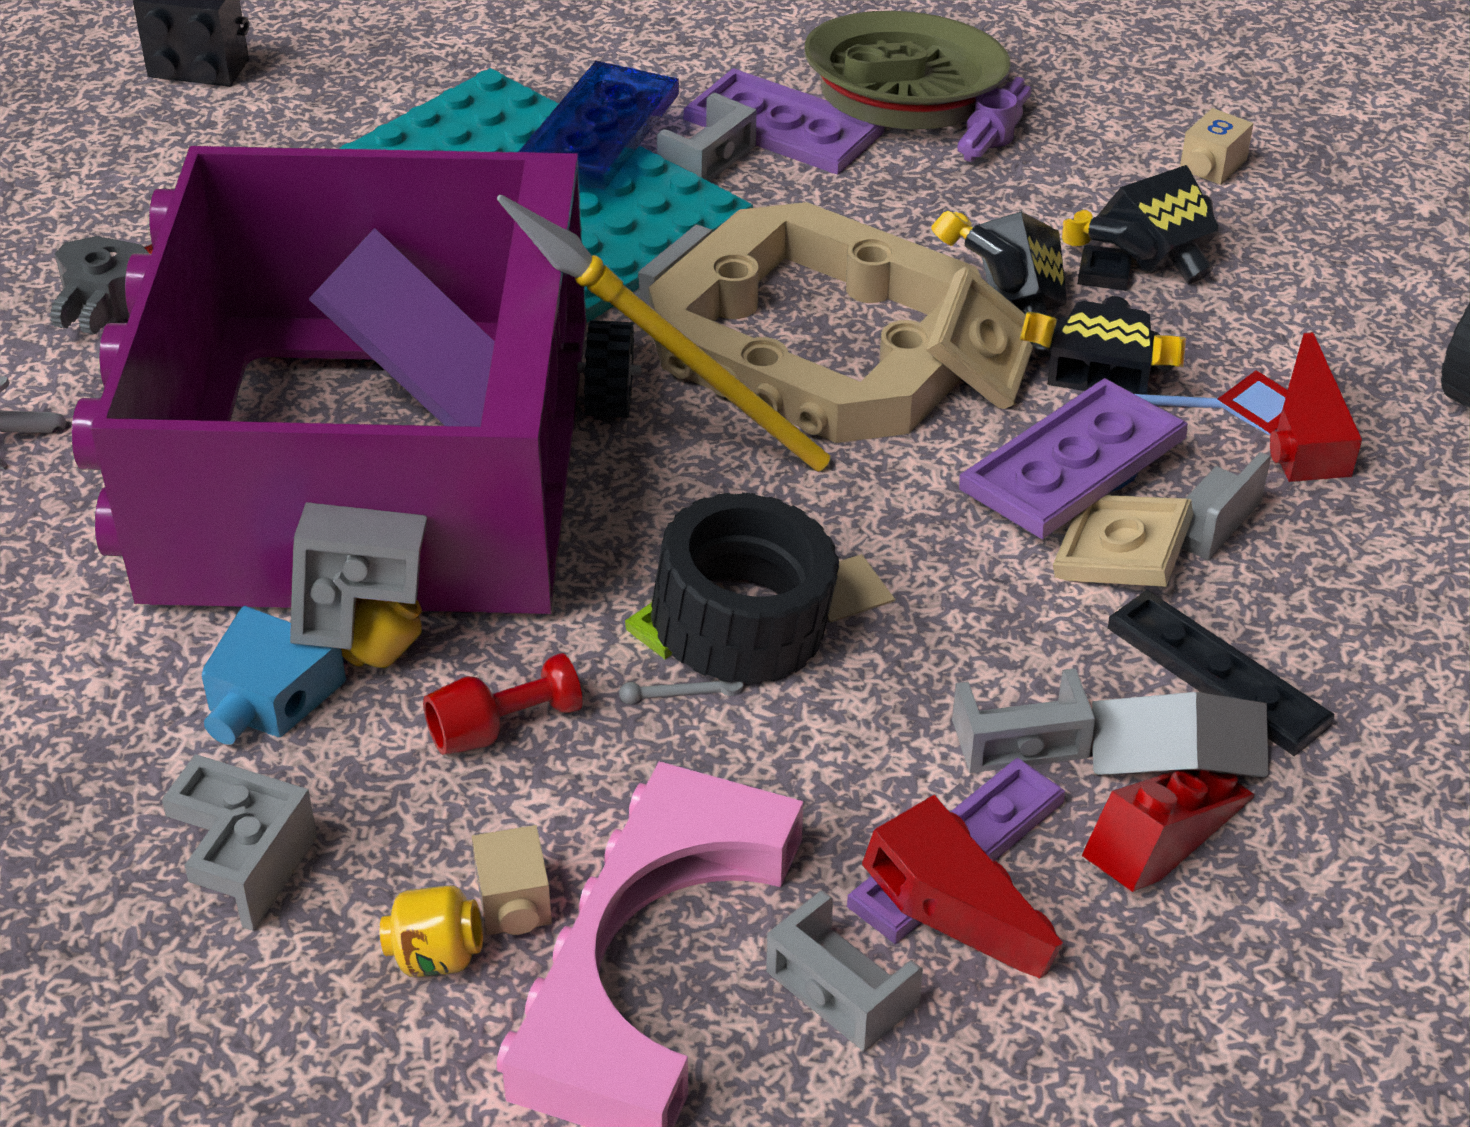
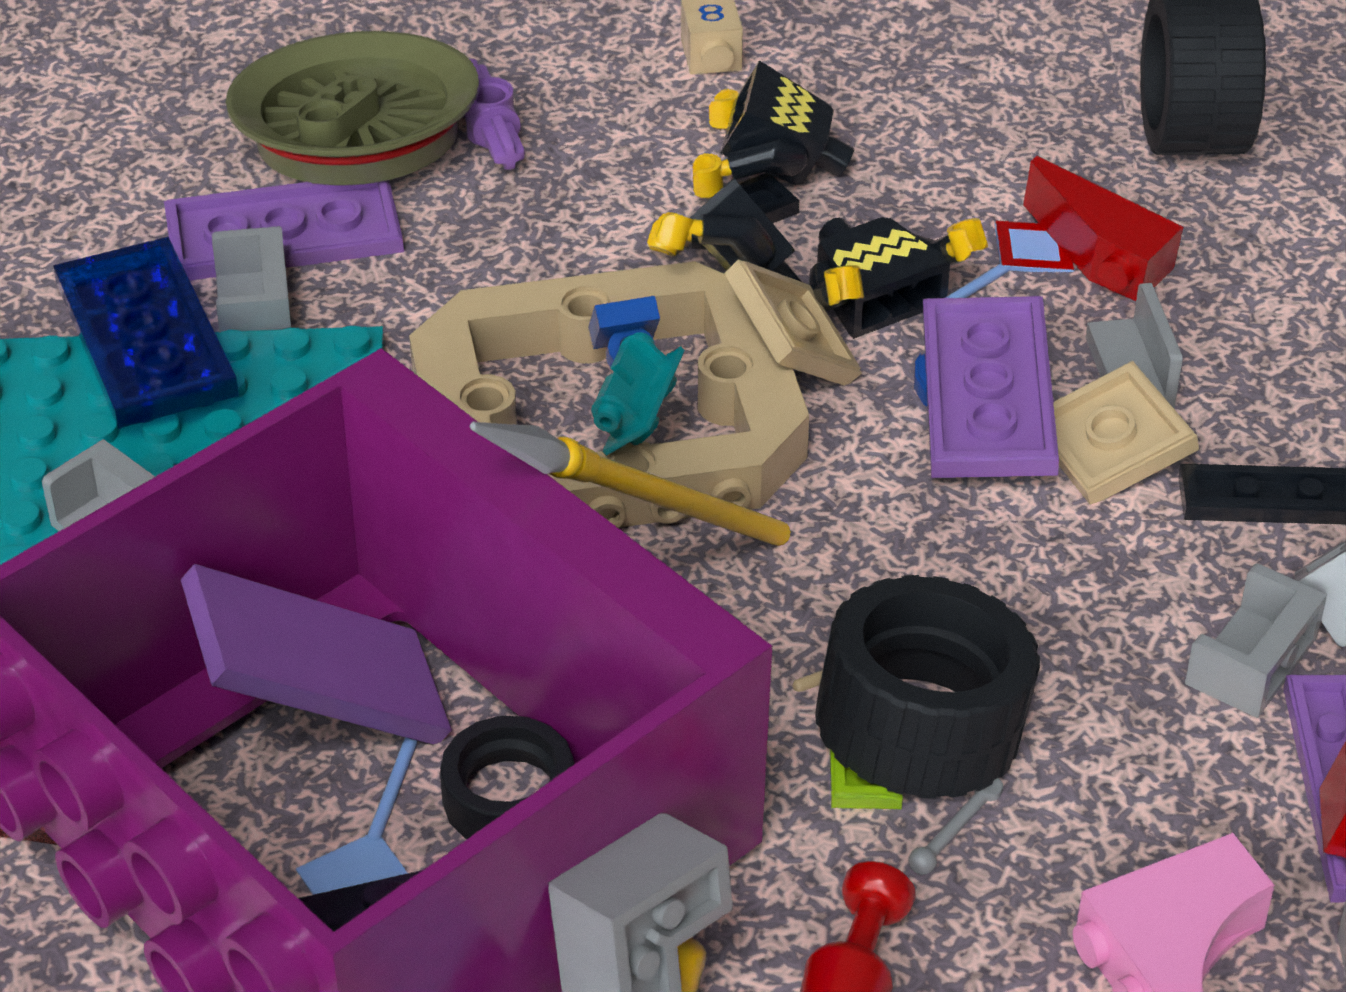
camera: 45 degrees left, 0 degrees up
(822, 302) = (634, 391): none -> teal hinge
(854, 268) = (621, 319): none -> blue tile

